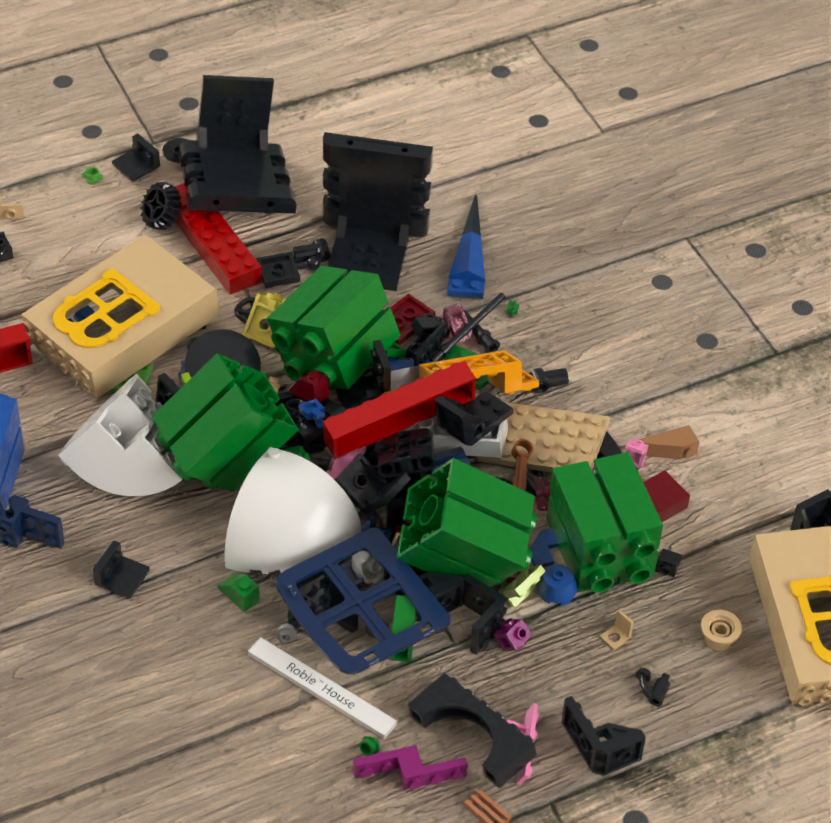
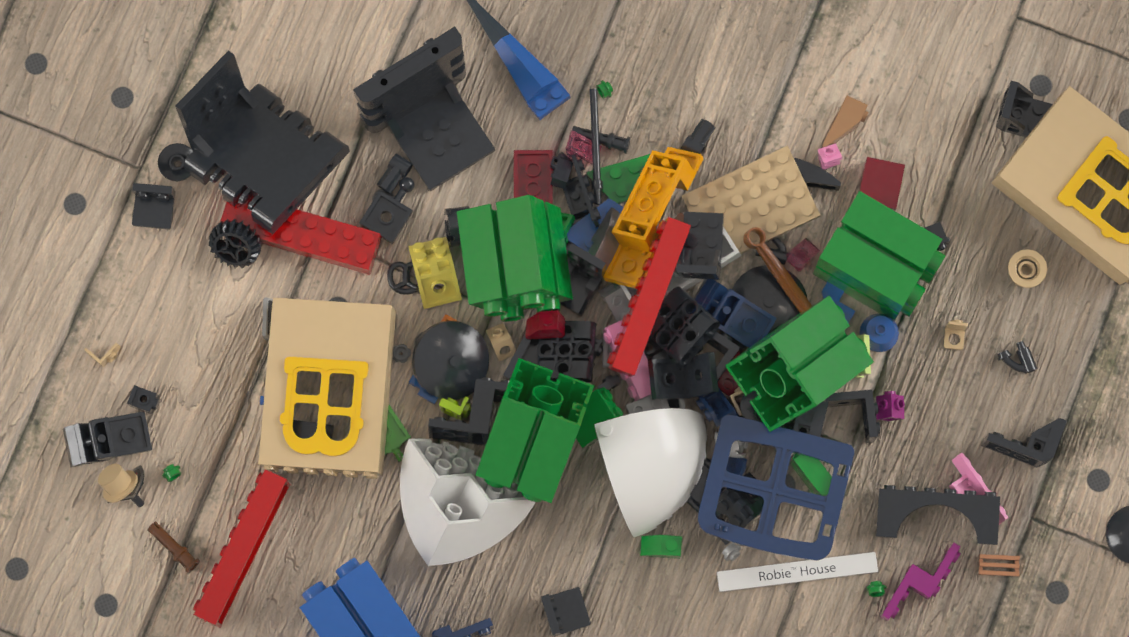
camera: 40 degrees left, 30 degrees up
(92, 175) = (136, 253): bright green plate -> none
(313, 410) = (576, 349): blue plate -> none

